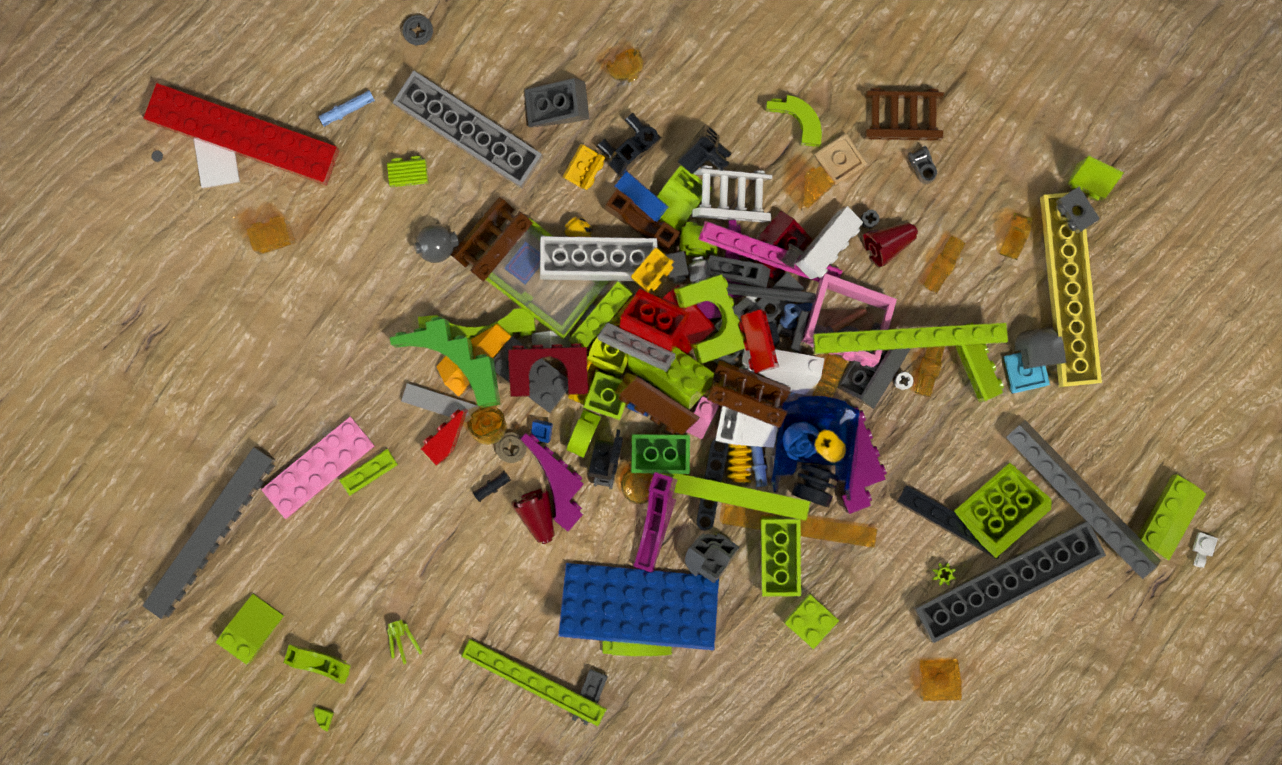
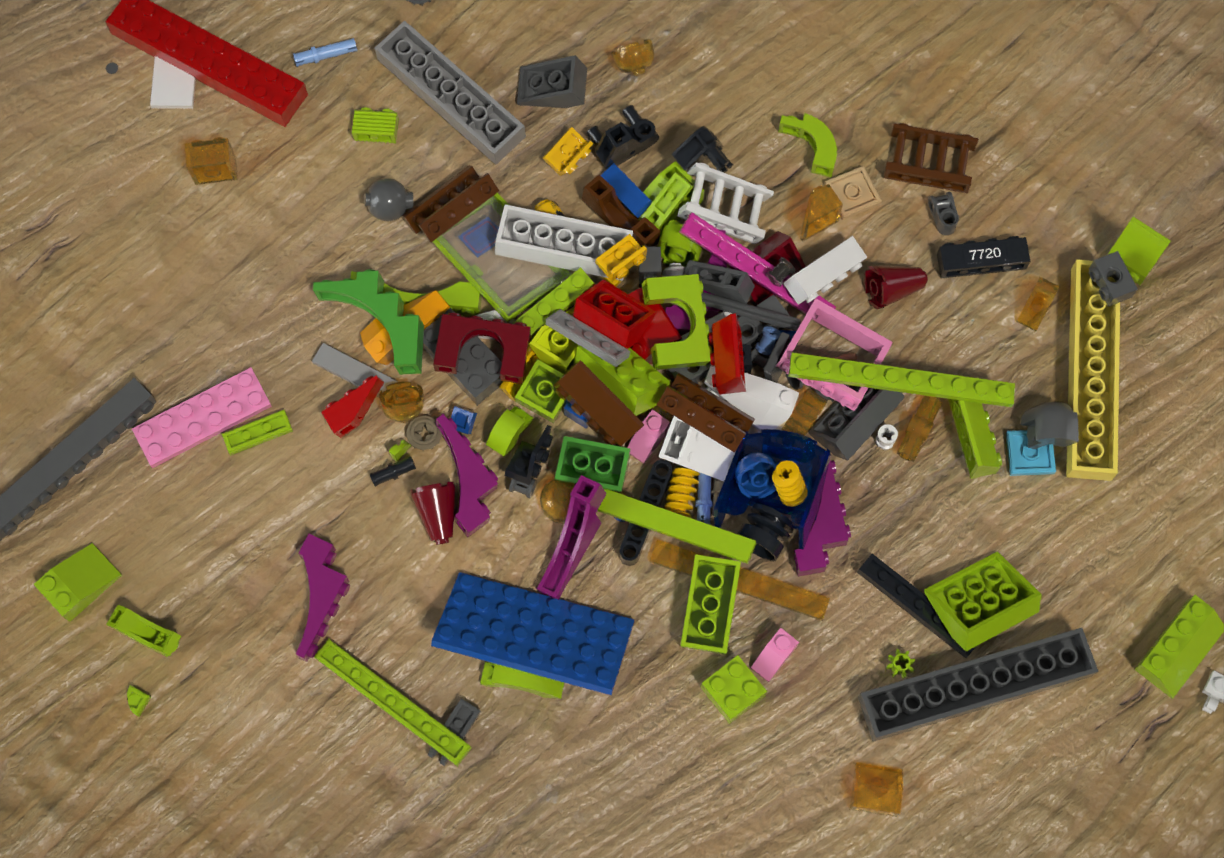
camera: 10 degrees right, 15 degrees down
(396, 630) = (245, 614): lime plant -> none
(457, 599) = (325, 589): none -> magenta arch
(493, 466) = (397, 452): none -> lime tile
(681, 204) = (668, 200): none -> lime plate
(710, 555) = (628, 591): dark grey brick -> none
(839, 586) = (774, 655): none -> bright pink slope
(875, 216) = (872, 251): dark grey bush -> none
(944, 264) = (952, 320): clear yellow piece -> none
(962, 202) = (983, 257): none -> black brick
(1084, 499) = (1080, 603): dark grey brick -> none

